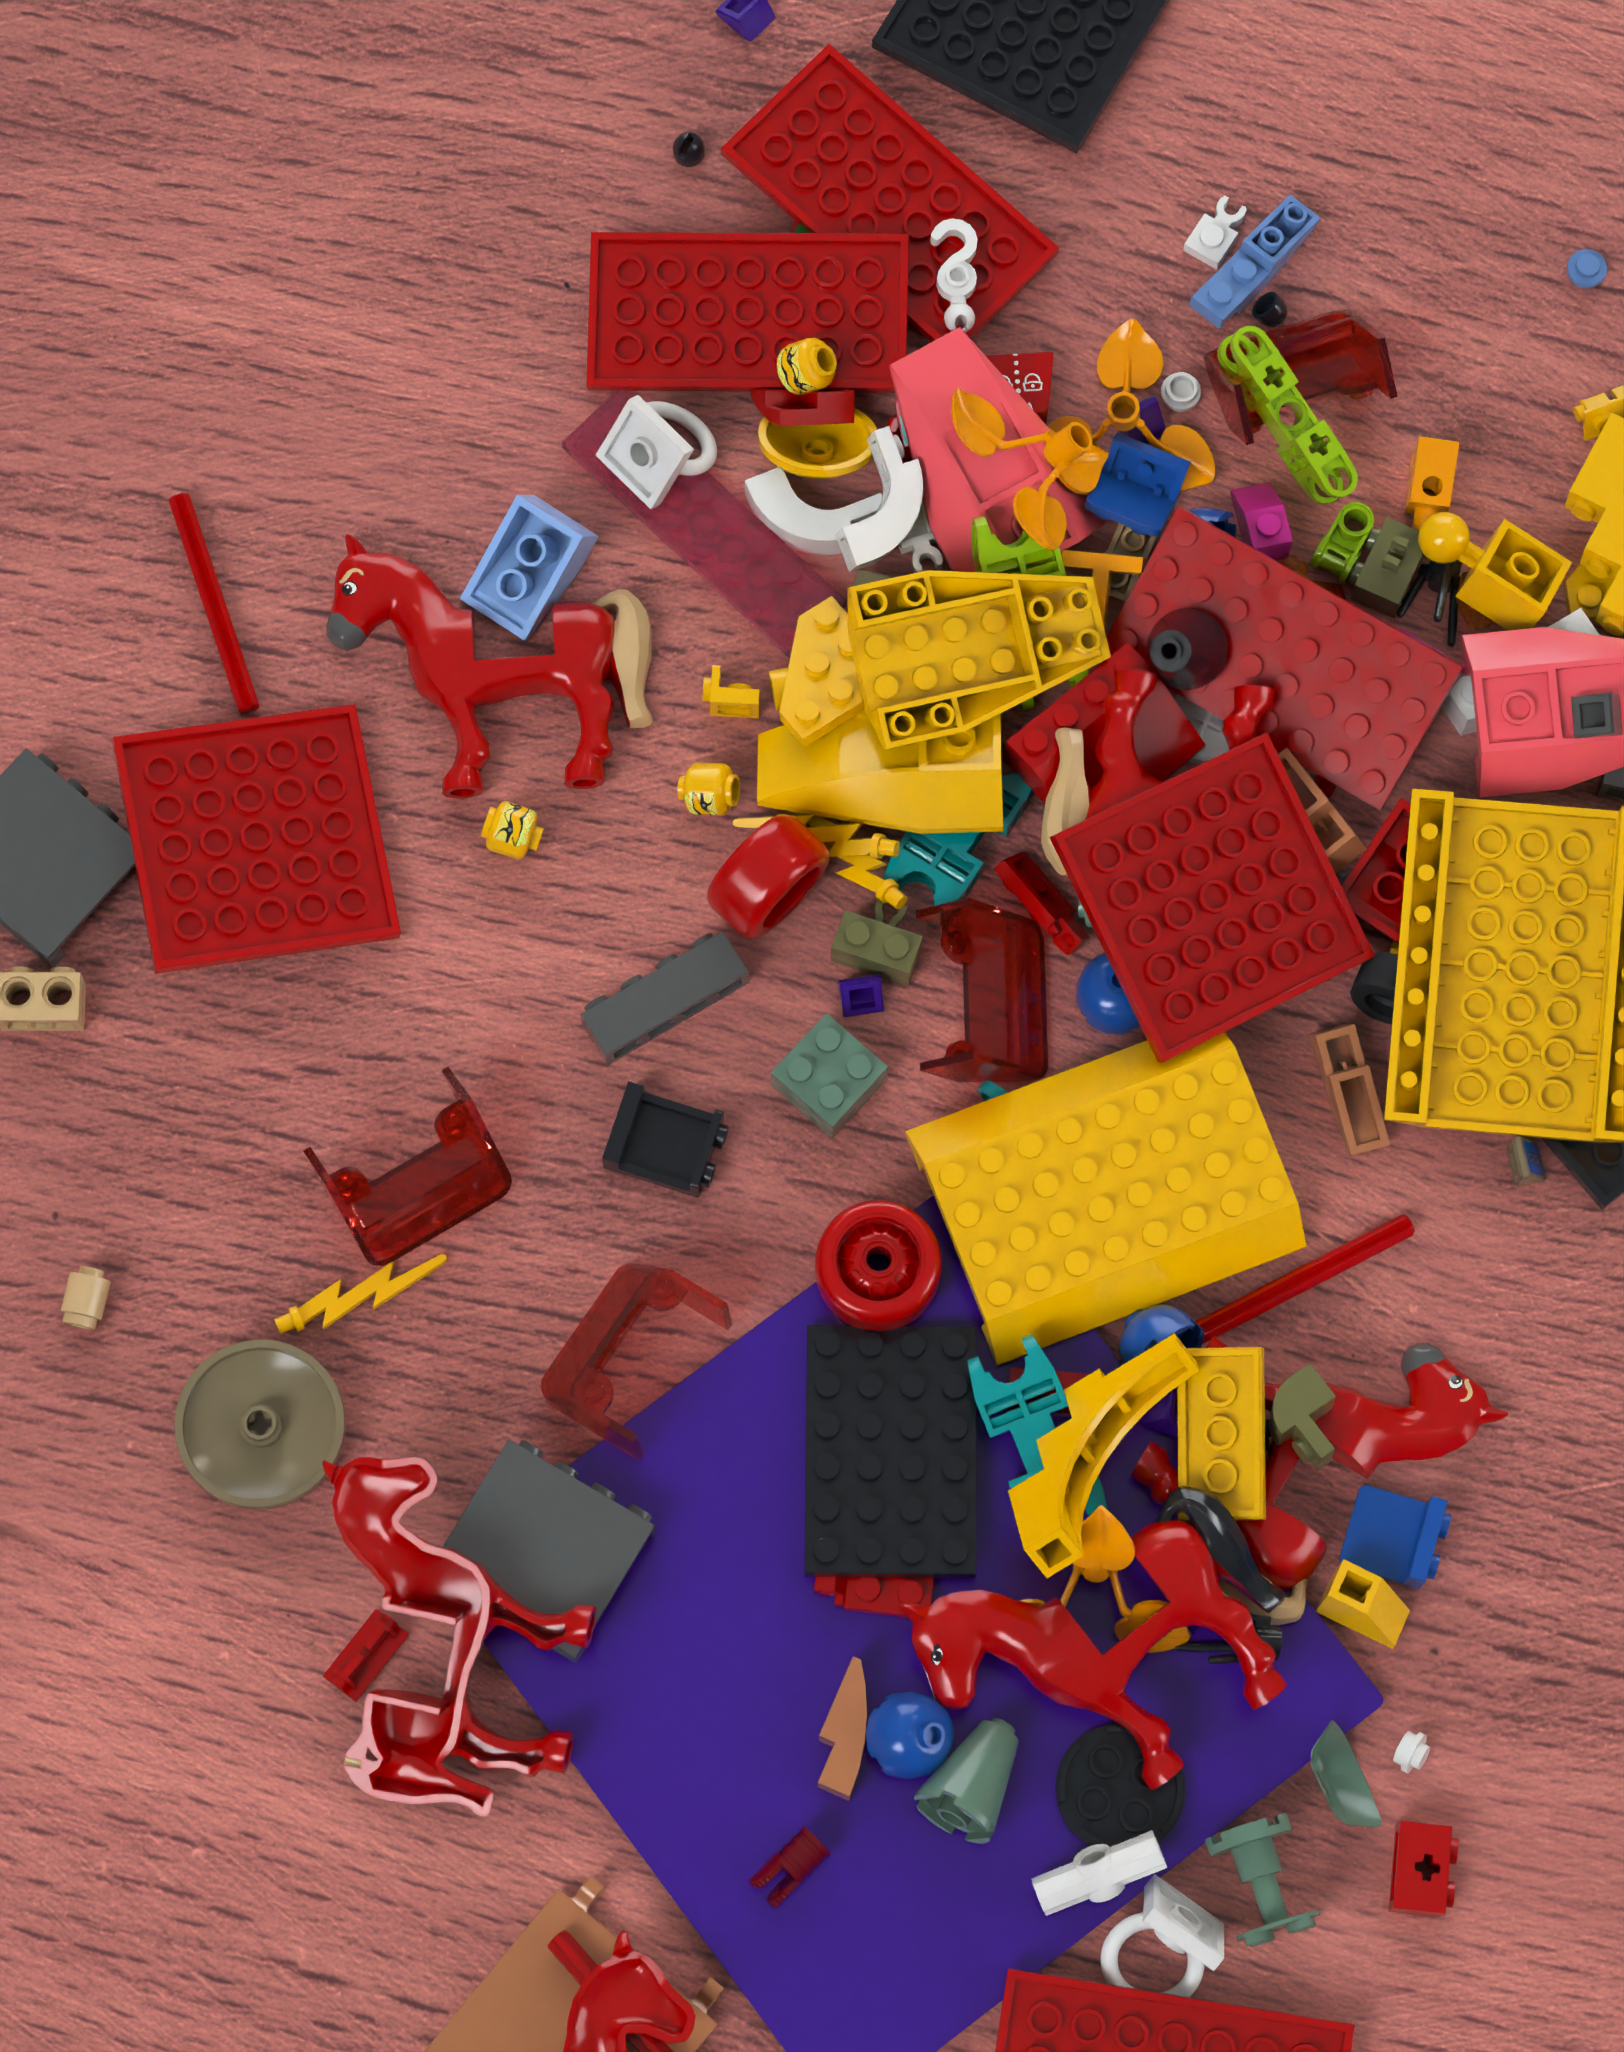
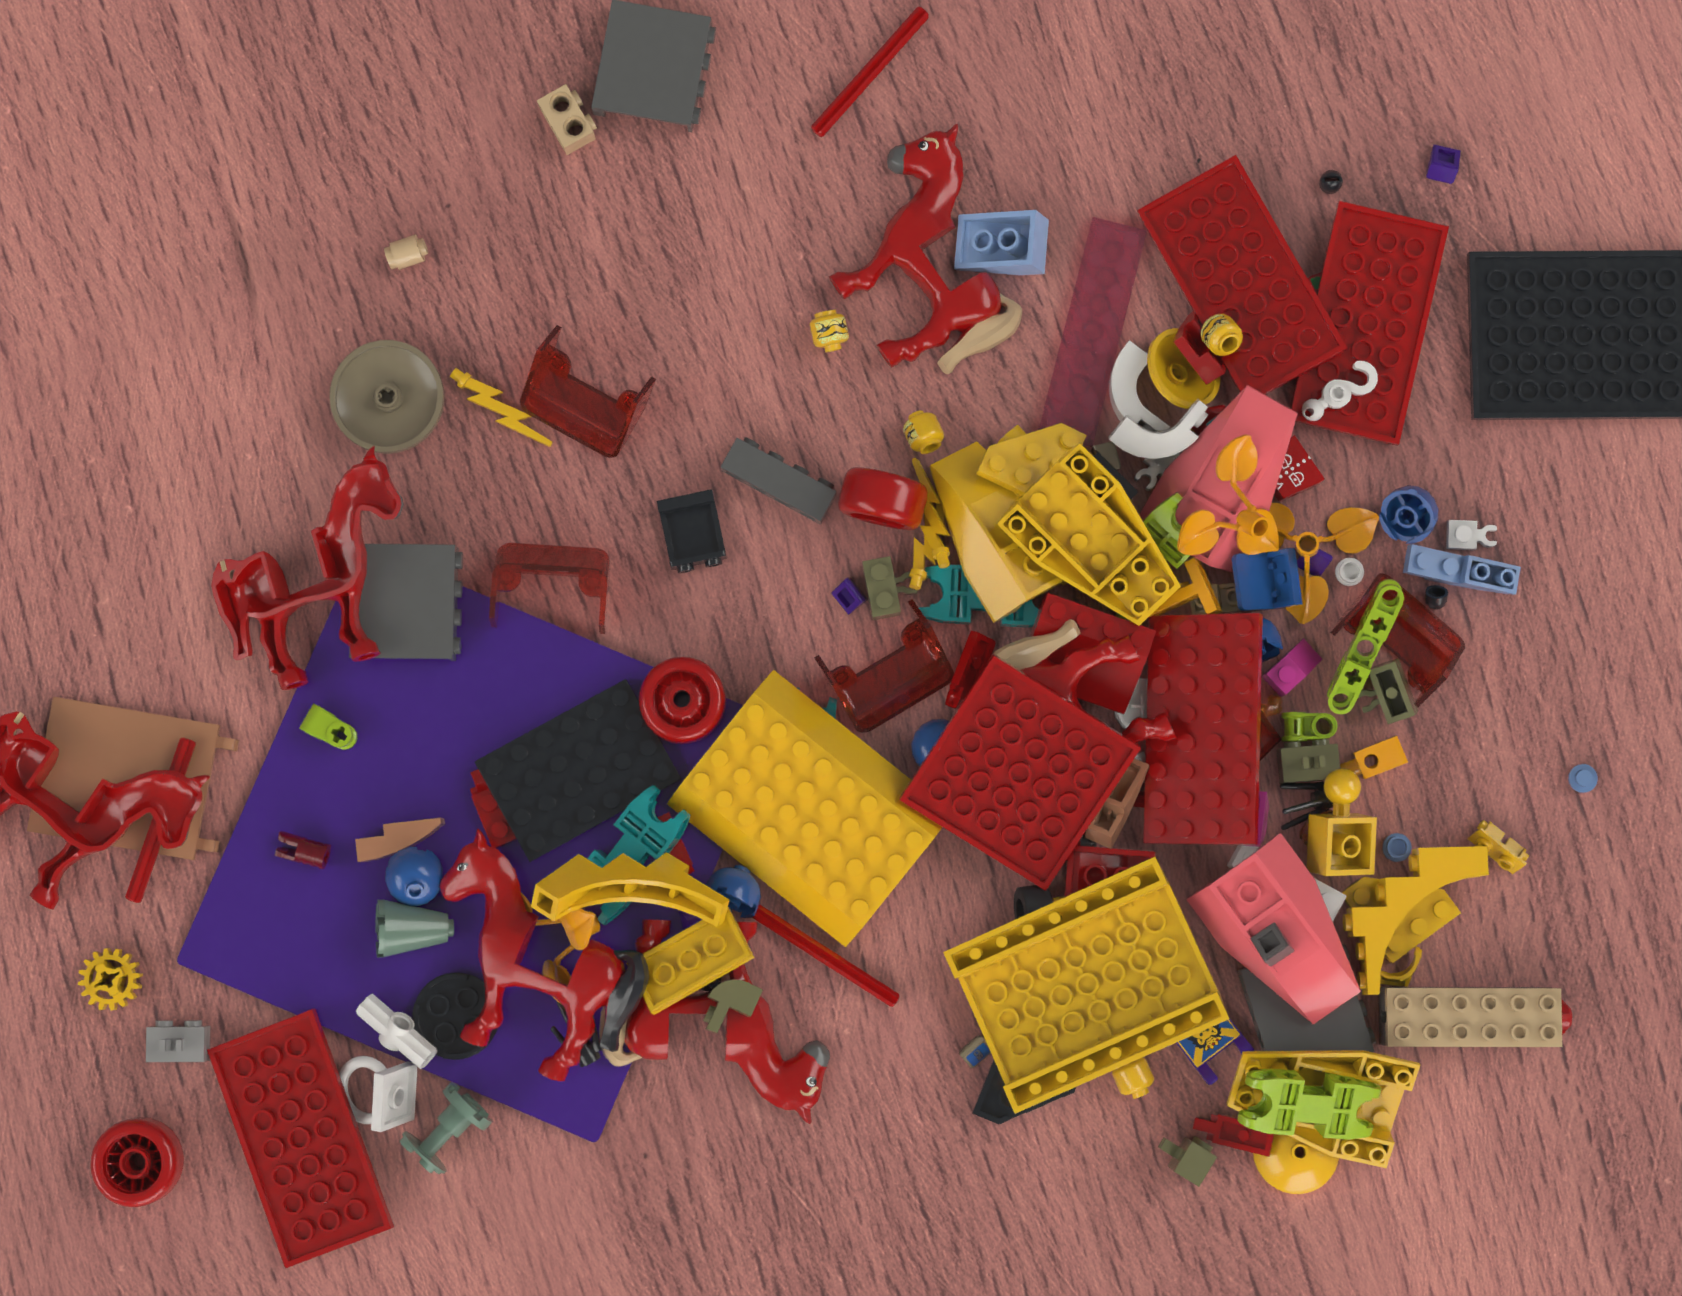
camera: 60 degrees right, 10 degrees up
(255, 838) = (734, 183): red plate -> none
(366, 1655) = (288, 536): red hinge -> none
(641, 1748) = (325, 727): none -> lime piece
(650, 452) = (1110, 271): white tile -> none
(735, 701) = (989, 416): yellow bracket -> none
(829, 1075) = (786, 605): sand green brick -> none
(1153, 280) = (1409, 514): none -> blue cylinder
(1187, 648) = (1172, 668): cone -> none
(1343, 1779) = (530, 1150): sand green piece -> none
(1350, 1088) = (959, 919): nougat slope -> none
(1360, 421) = (1392, 692): none -> olive brick
(1363, 1604) = (644, 1100): yellow slope -> none
(1395, 1535) = (698, 1095): blue bracket -> none
(1407, 1890) = (518, 1205): red brick -> none
(1411, 1751) = (574, 1175): white plate -> none
(1551, 524) = (1396, 847): none -> medium blue plate

